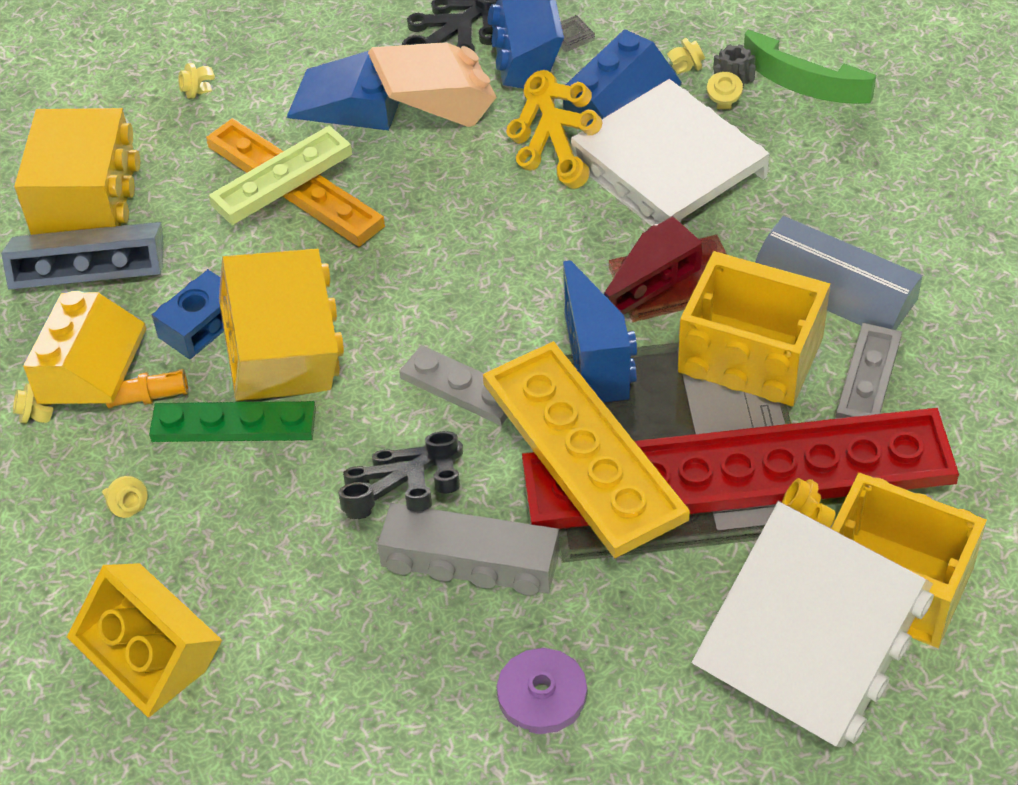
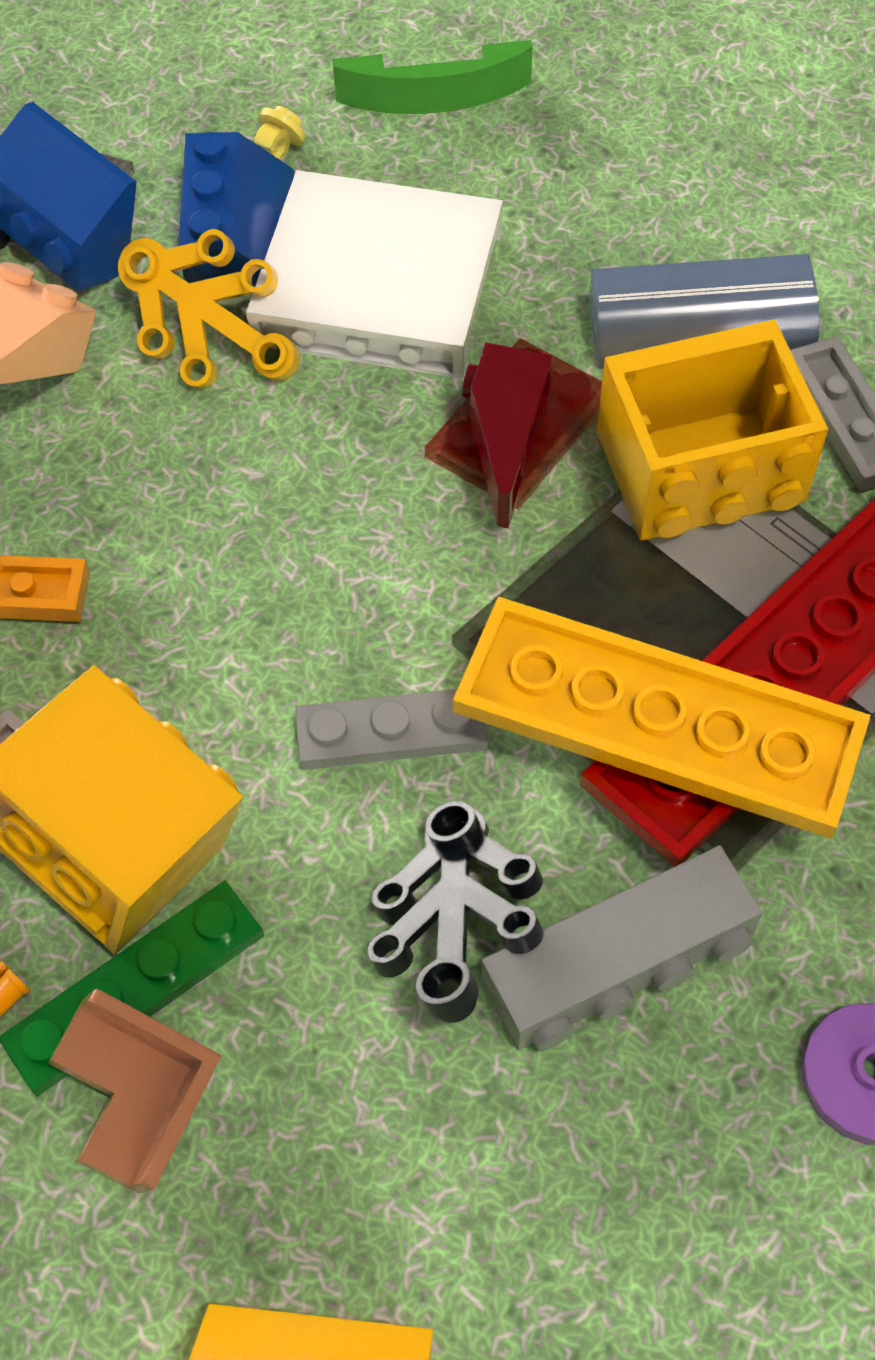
camera: 40 degrees left, 10 degrees up
(125, 496) = (84, 1211): light yellow plate -> none
(200, 457) = (151, 1086): none -> nougat panel
(598, 337) = (532, 549): blue slope -> none
(724, 89) = (365, 149): light yellow plate -> none
(736, 61) = (347, 116): dark grey gear -> none

